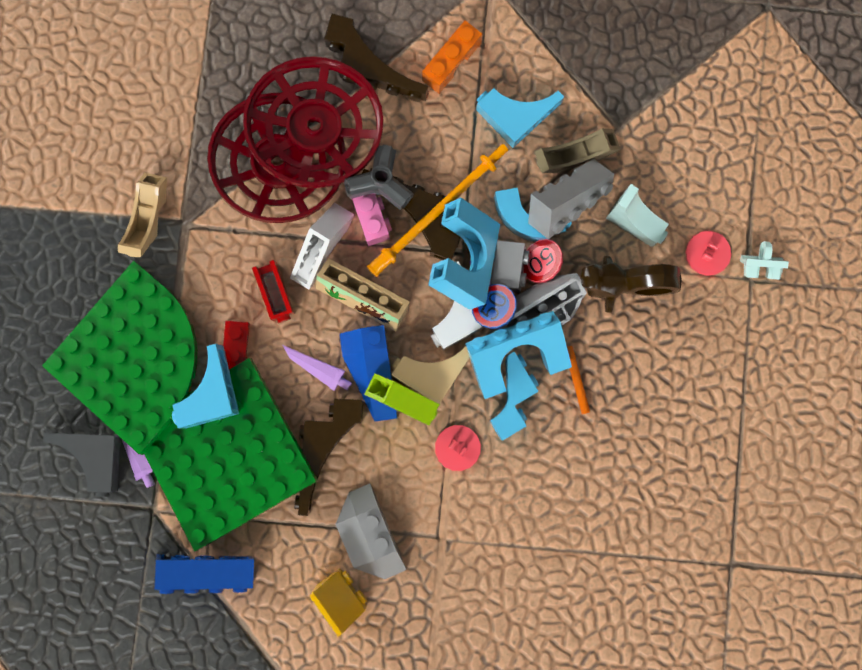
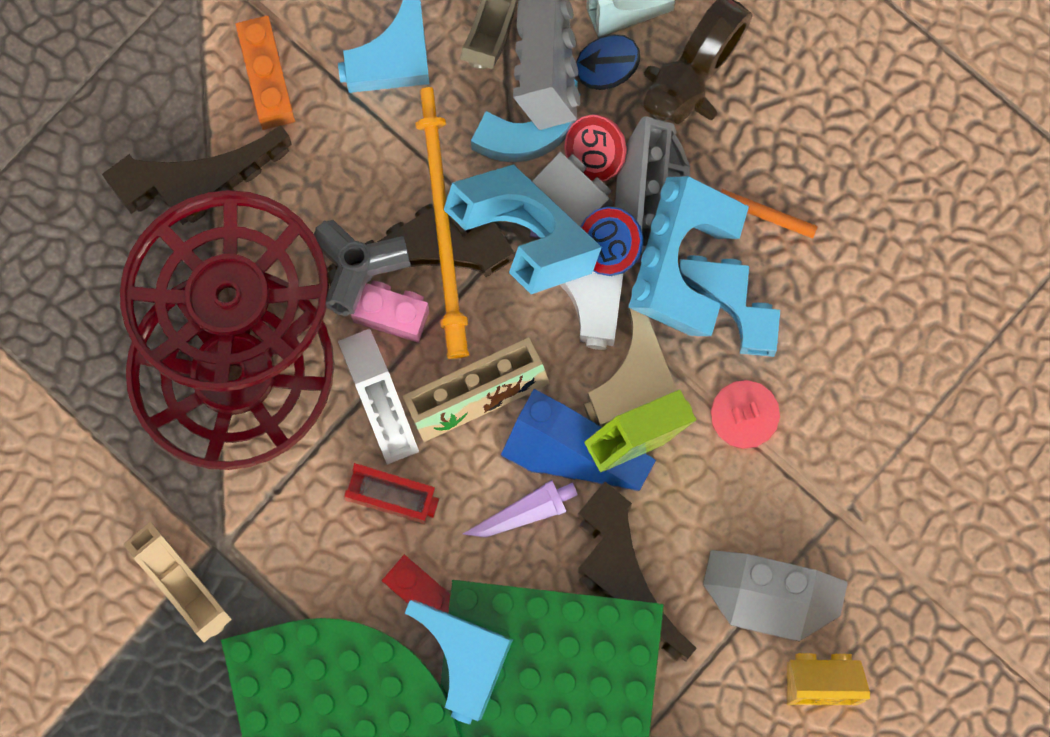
camera: 50 degrees left, 5 degrees down
(595, 232) = (608, 62): none -> blue piece

